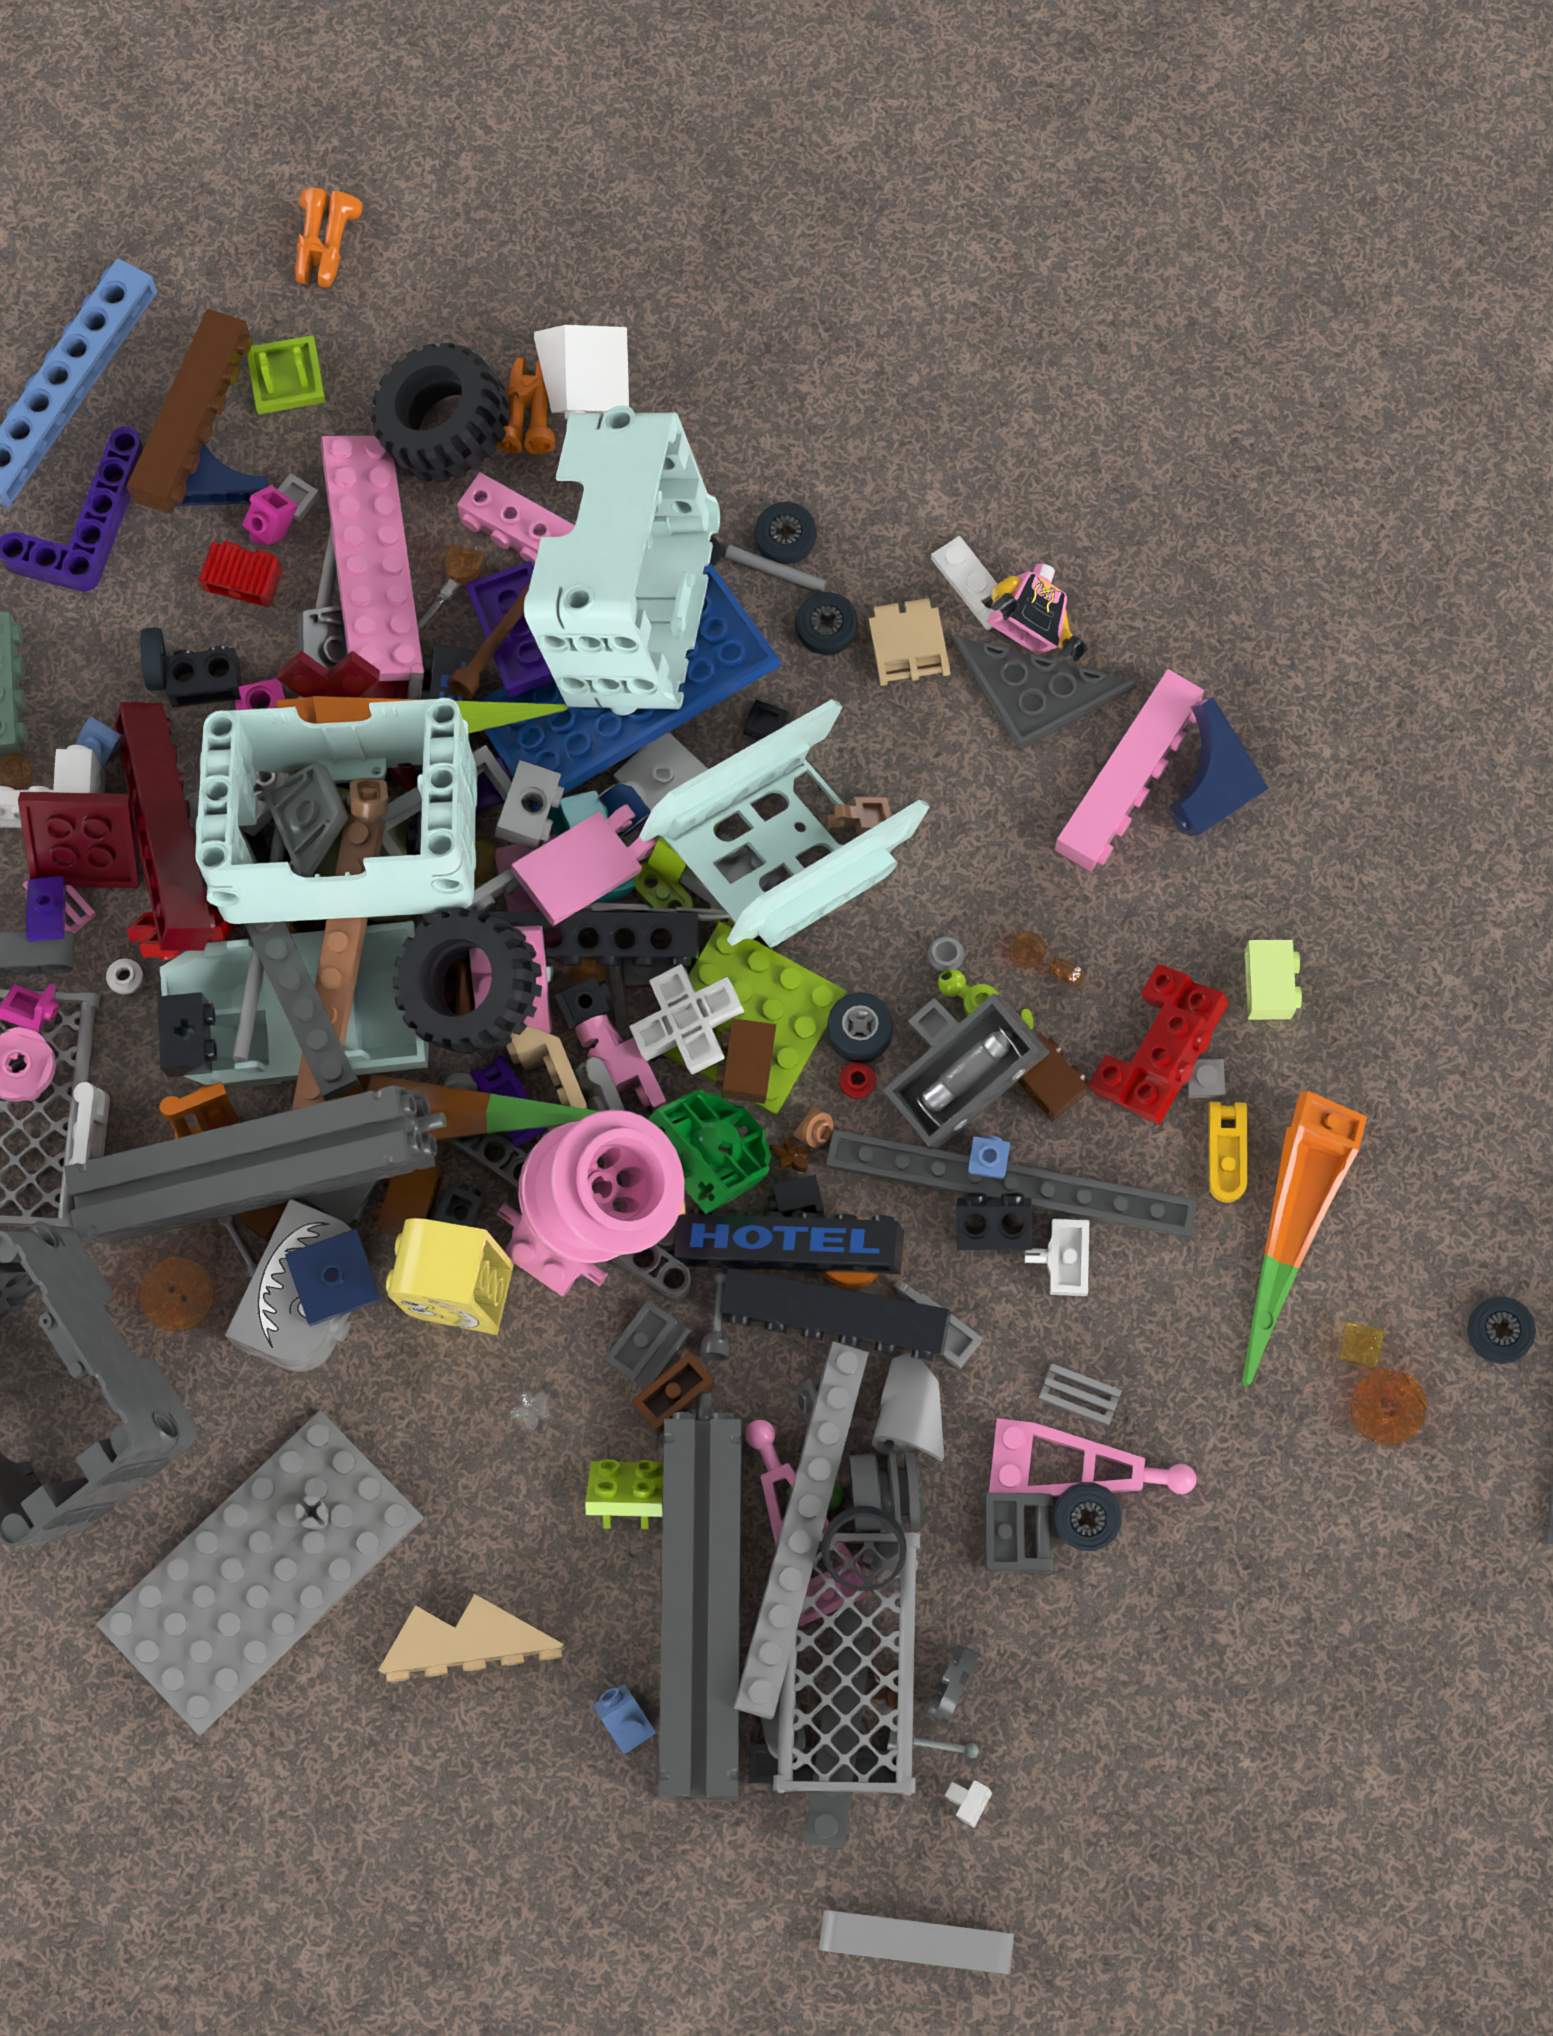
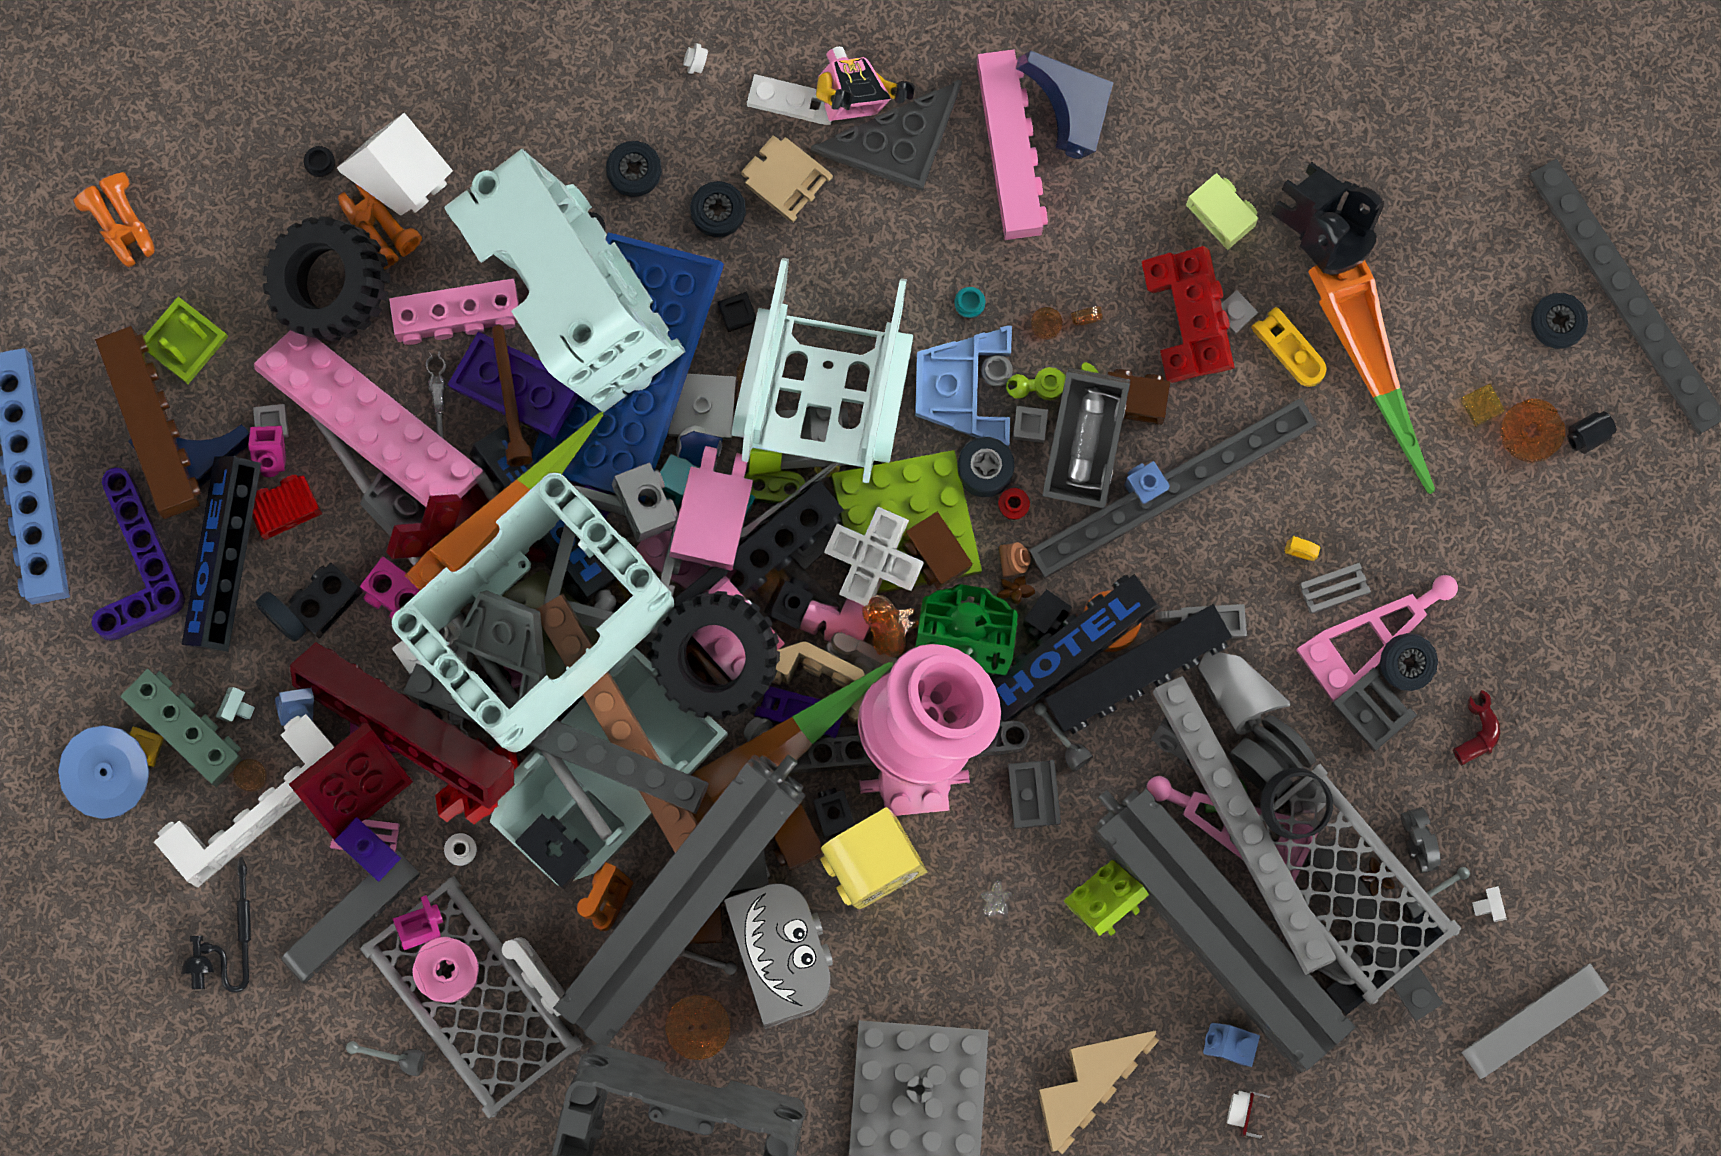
camera: 45 degrees left, 5 degrees up
(52, 701) = (233, 706): none -> light aqua tile
(152, 567) = (221, 553): none -> black brick
(333, 1277) = (801, 925): dark blue plate -> none
(369, 799) = (540, 587): nougat plate -> none
(463, 564) = (434, 372): clear orange tile -> none
(528, 319) = (319, 161): none -> black plate
(576, 1784) = (1240, 1111): none -> white piece
(645, 1084) = (888, 625): none -> clear orange plate
(673, 1392) = (1081, 810): reddish brown brick -> none
(776, 569) = (649, 199): light grey bar -> none
(862, 813) = (863, 319): nougat plate -> none
(893, 930) = (950, 383): none -> light blue wing
(920, 482) = (695, 58): none -> white plate
(974, 877) = (969, 302): none -> teal plate
(994, 1233) = (1191, 530): black brick -> none
(1065, 1257) = (1249, 506): white plate -> none
(1080, 1334) = (1302, 548): none -> yellow tile
(1099, 1646) = (1486, 738): none -> dark red piece
(1347, 1074) = (1330, 236): none -> black piece
(1442, 1453) = (1591, 432): none -> black brick

